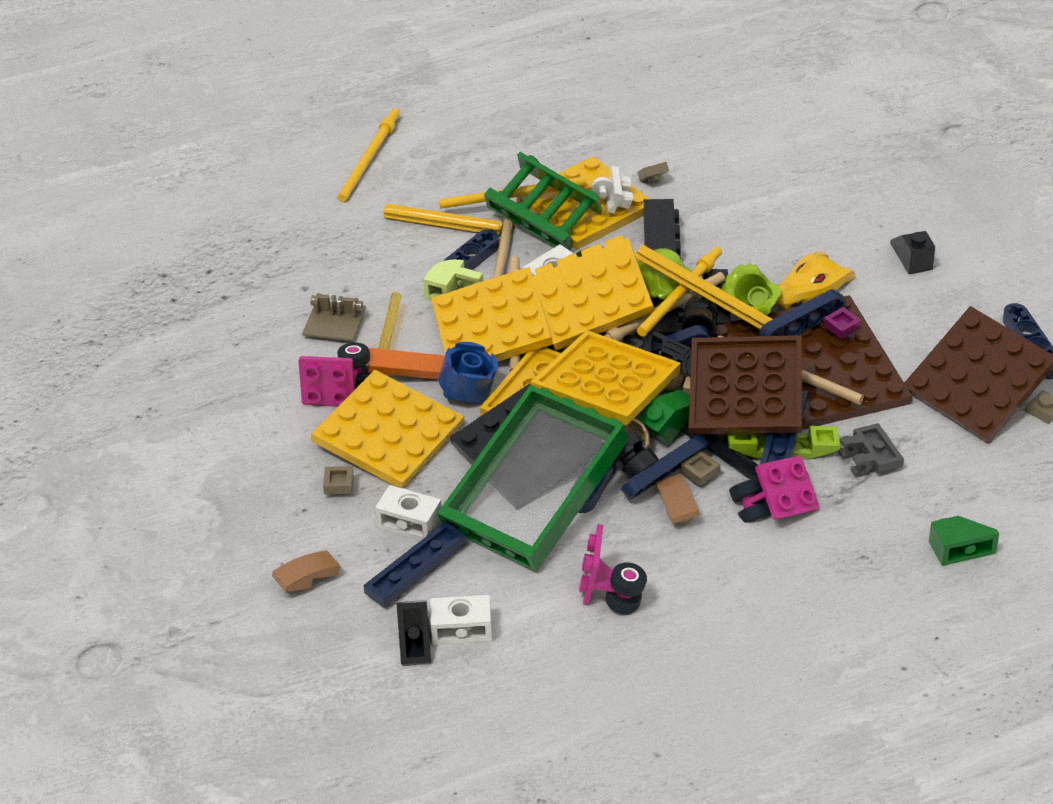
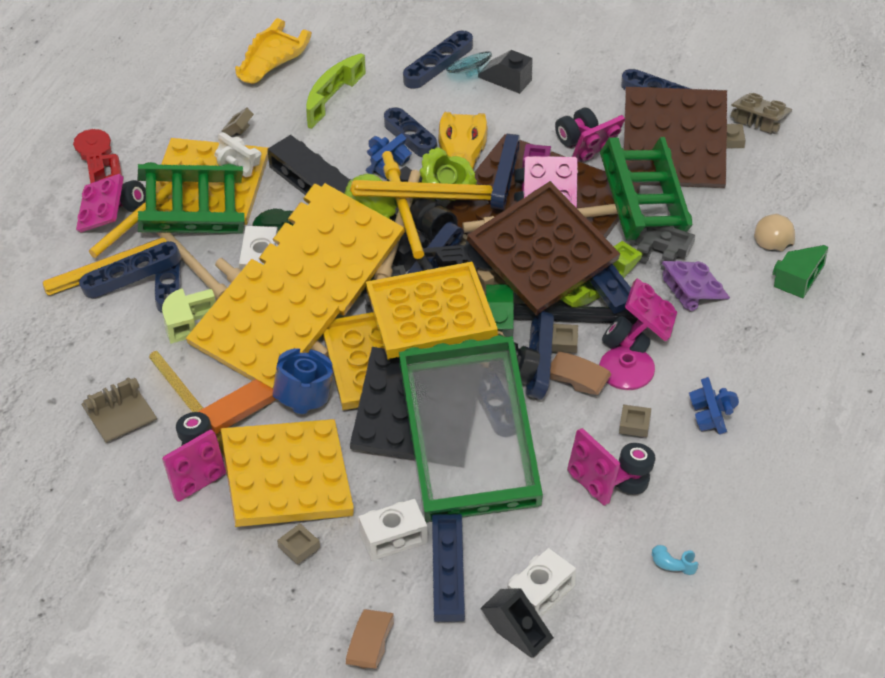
camera: 45 degrees left, 5 degrees up
(451, 229) = (129, 267): none -> dark blue beam
(492, 168) = (103, 199): none -> dark pink plate
(527, 140) = (96, 149): none -> red piece
(573, 670) = (666, 561): none -> medium azure arm
(677, 559) = (635, 420): none -> dark tan plate
(726, 523) = (628, 368): none -> dark pink dish
(736, 253) = (379, 146): none -> blue hips
(743, 131) = (270, 50): none -> yellow animal
(751, 588) = (713, 417): none -> blue hips
(755, 181) = (345, 72): none -> lime slope
(778, 259) = (407, 123): none -> dark blue beam
(820, 342) = (541, 170): none -> plate
(858, 493) = (692, 282): none -> medium lavender hinge
(882, 374) = (628, 201): none -> green fence
(888, 229) = (470, 64): none -> clear light blue dish
(899, 210) = (418, 74): none -> dark blue beam
(911, 332) = (586, 132): none -> plate
(980, 500) = (775, 232): none -> tan hair

